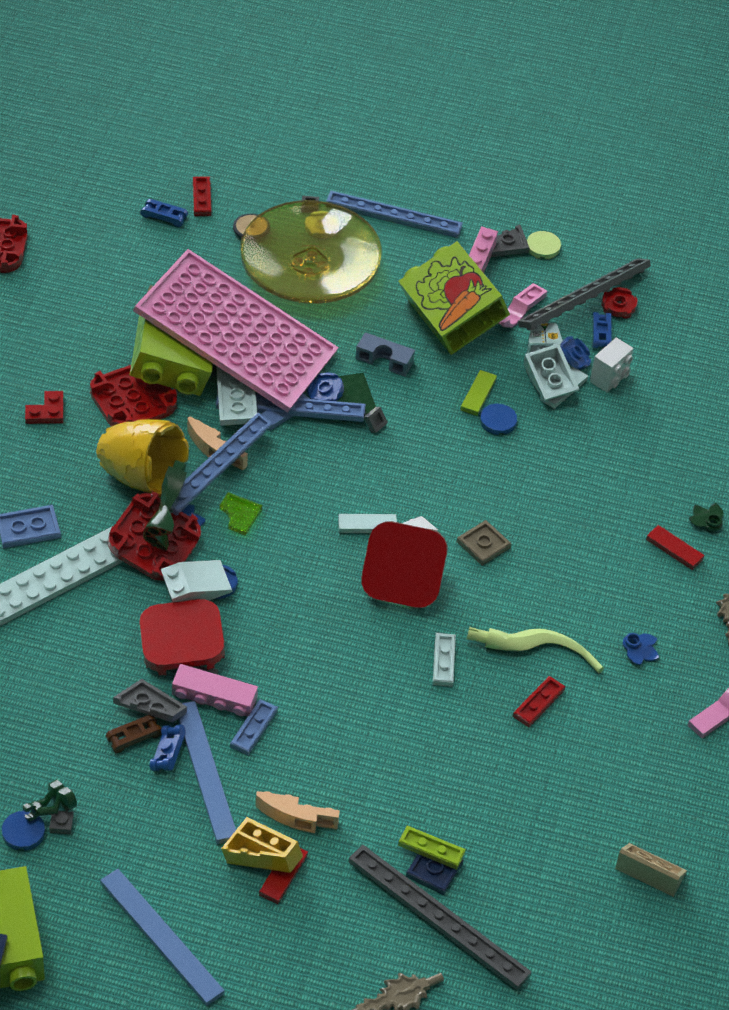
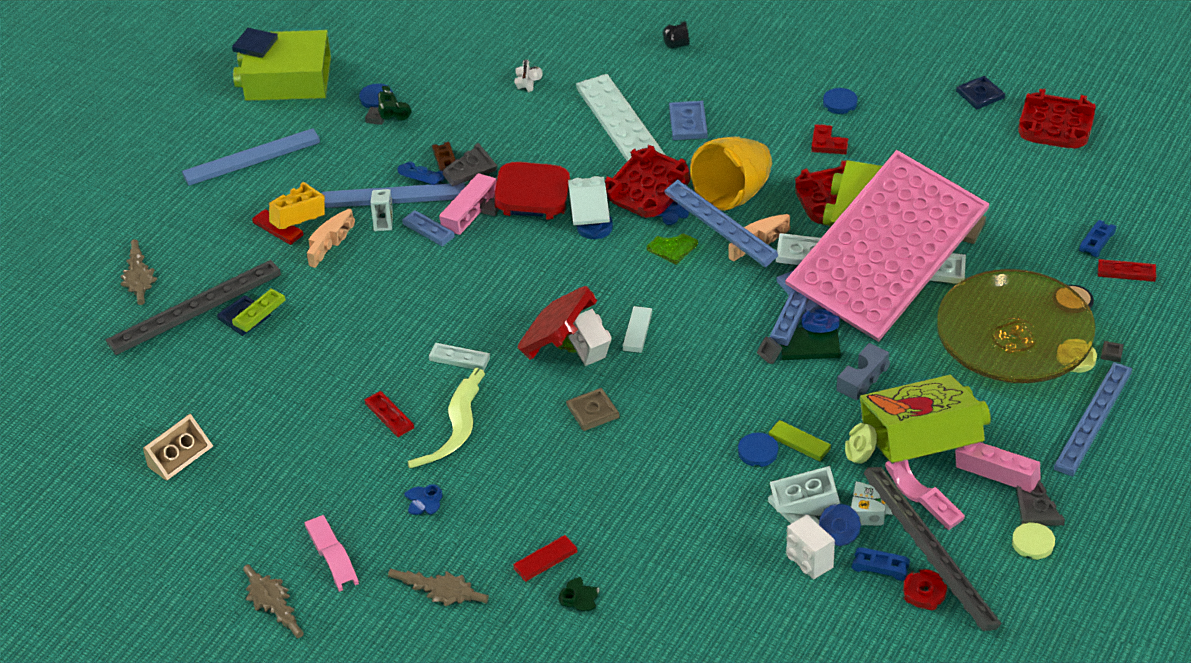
camera: 110 degrees right, 5 degrees down
(162, 522) = (673, 173): dark green hips -> none
(243, 765) = (382, 203): none -> light aqua torso
(481, 344) = (861, 443): none -> yellowish green tile

